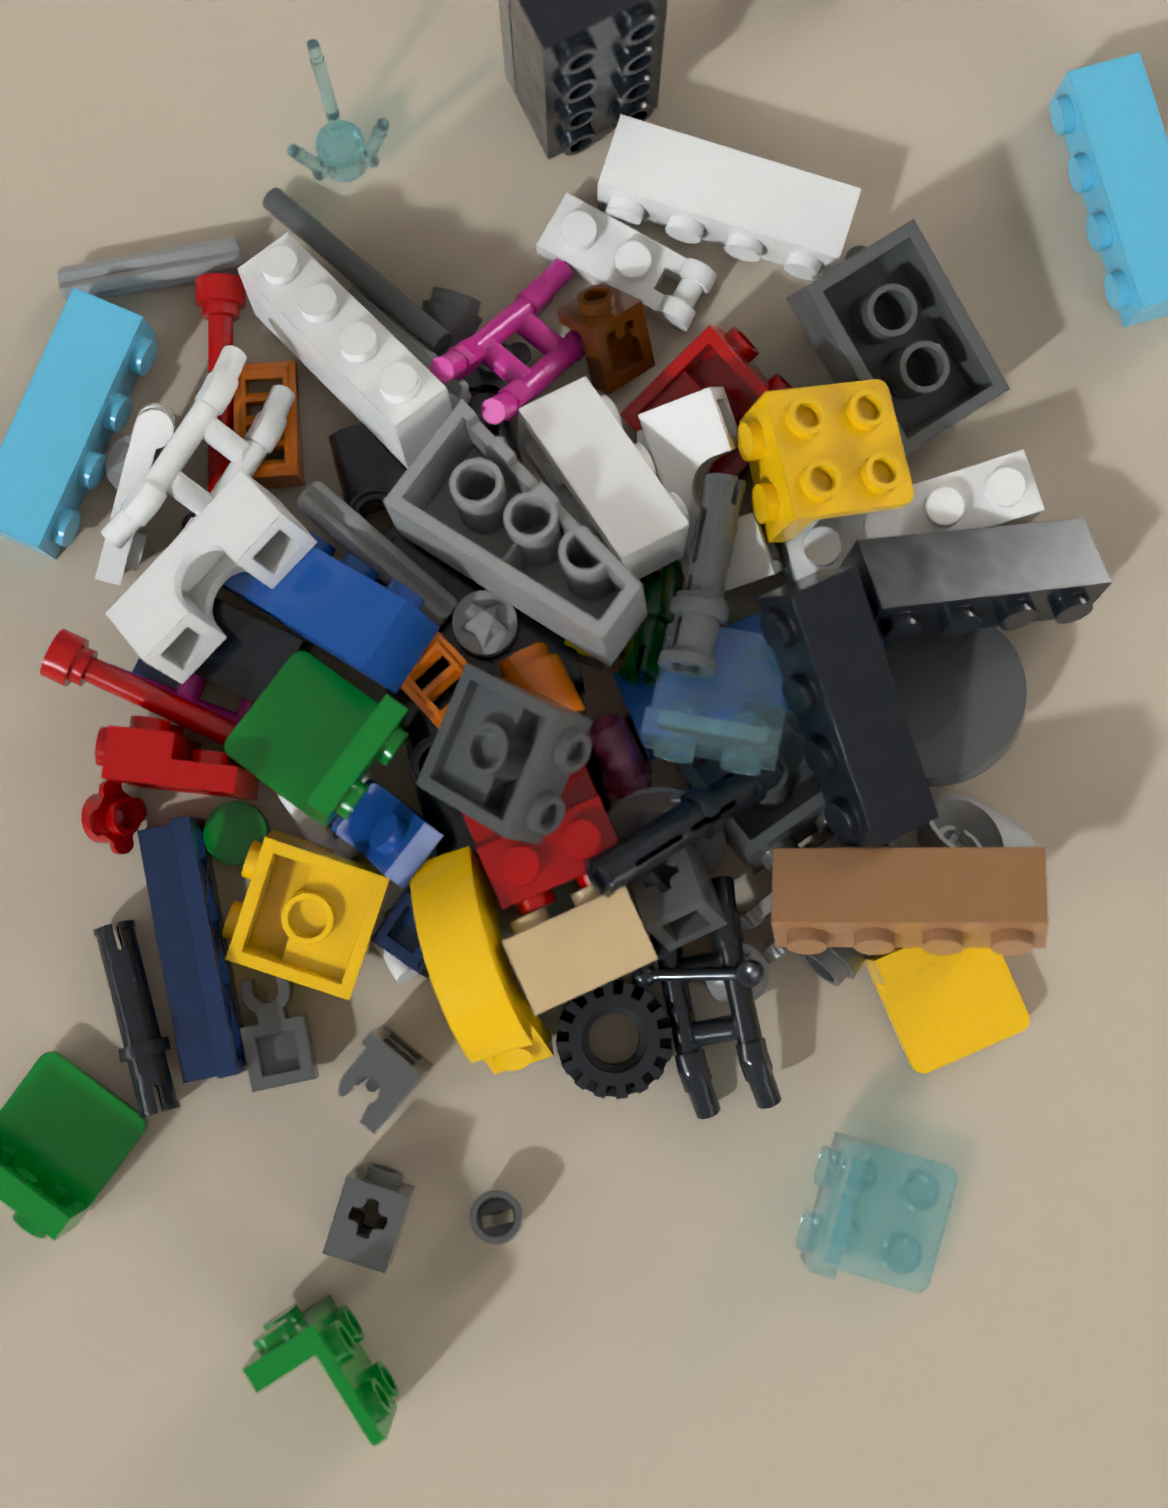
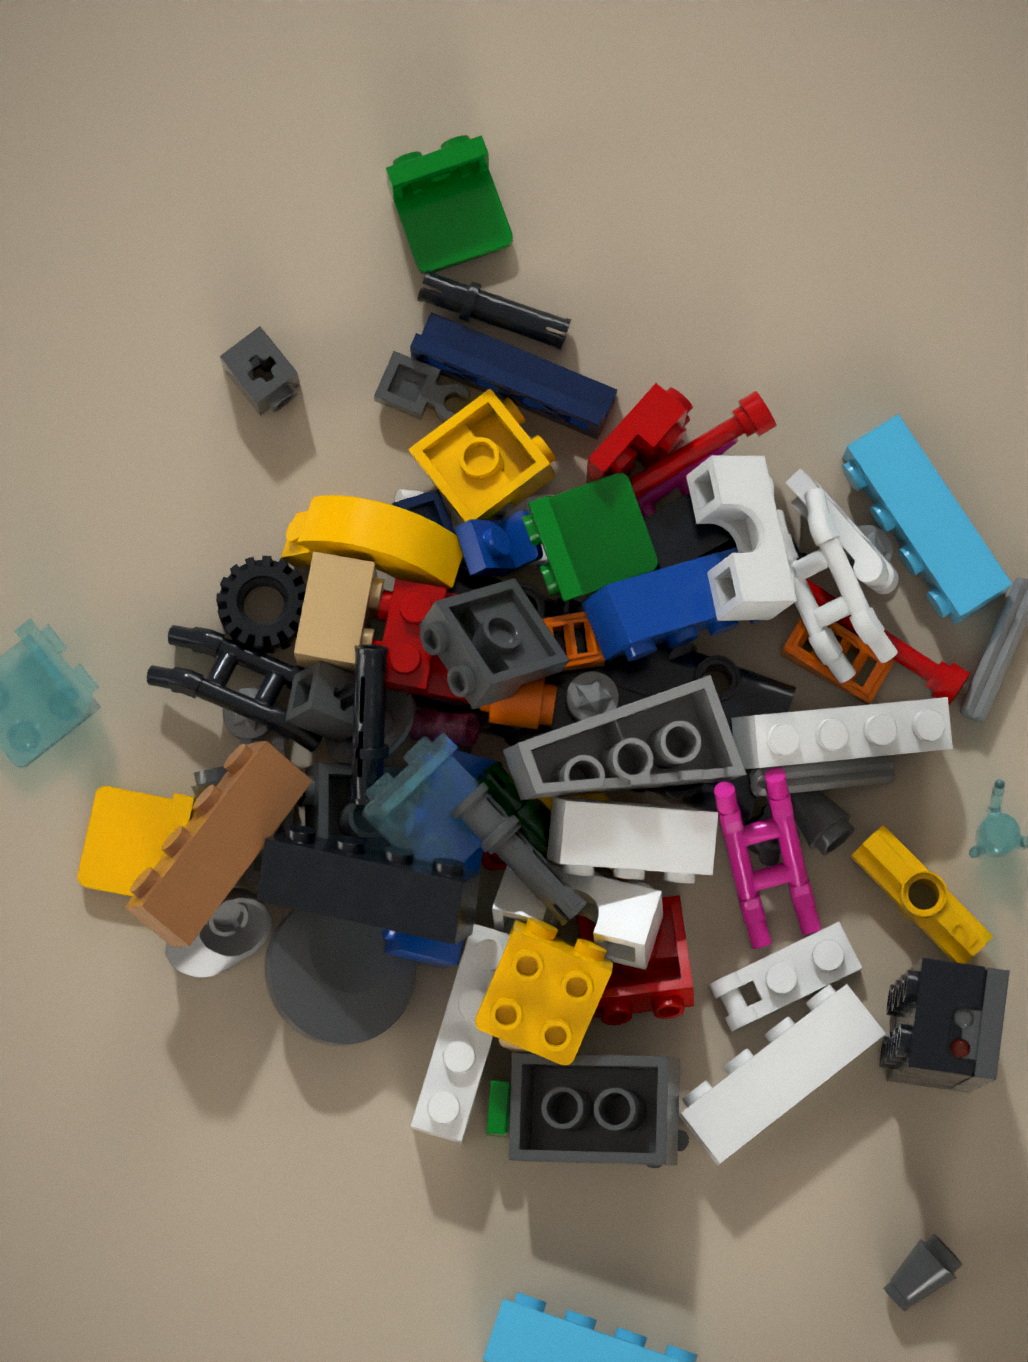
camera: 125 degrees right, 5 degrees down
(113, 817) = (634, 378): red plate -> none
(232, 830) = (572, 449): green tile -> none
(334, 1338) = (198, 298): green bracket -> none
(357, 270) = (901, 784): dark grey bar -> none
(374, 549) = (688, 659): light grey axle -> none
(390, 1068) = (346, 445): dark grey hinge -> none
(461, 146) = (896, 871): none -> yellow piece
(496, 1203) = (212, 457): dark grey hinge -> none
(611, 333) = (738, 923): reddish brown bracket -> none
(747, 974) = (243, 711): black hinge -> none
(955, 445) = (499, 1108): none -> green tile
(979, 578) = (395, 1042): black brick -> none

